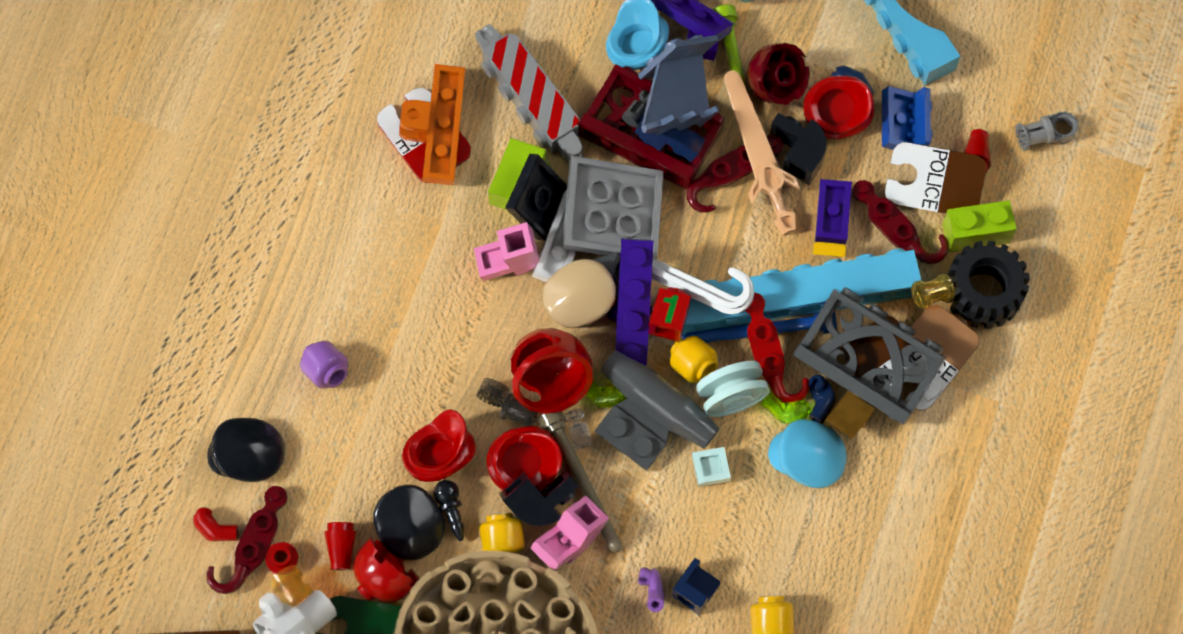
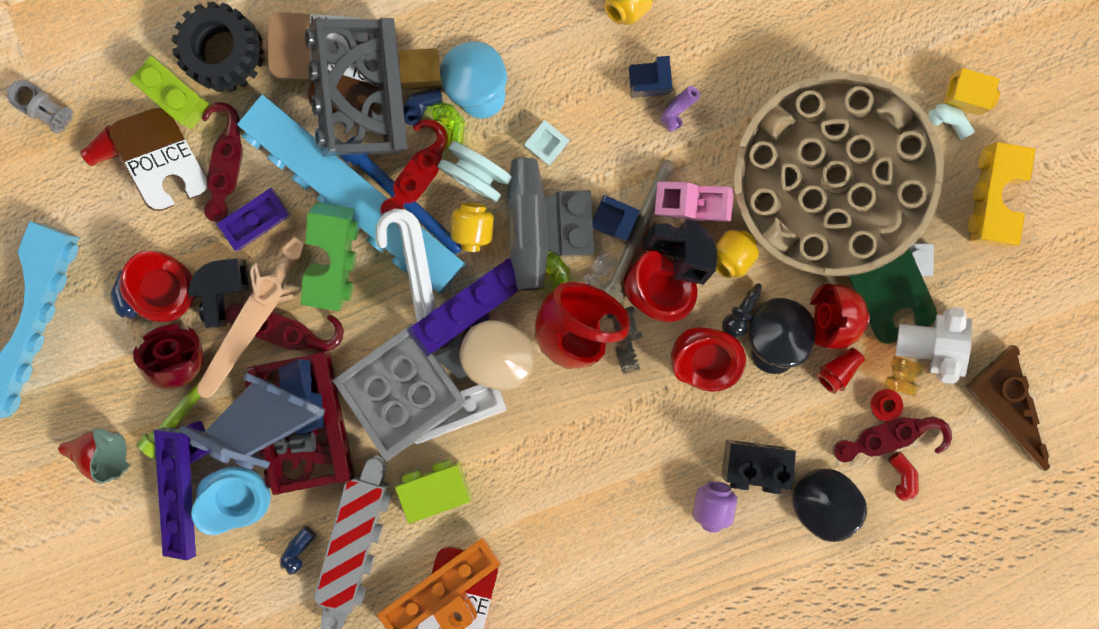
camera: 130 degrees left, 20 degrees up
(325, 421) = (758, 466): none -> black brick
(512, 253) = (507, 443): bright pink brick -> none
(536, 196) = (441, 460): black tile -> none
(563, 55) = (295, 547): none -> dark blue arm
(607, 471) = (615, 218): none -> dark blue panel
(669, 313) = (455, 268): red brick -> none
(771, 251) = (332, 230): none -> bright green arch
(828, 249) = (291, 196): yellow tile -> none
(906, 117) = (122, 224): blue bracket -> none
(932, 291) = (256, 77): clear yellow bush -> none

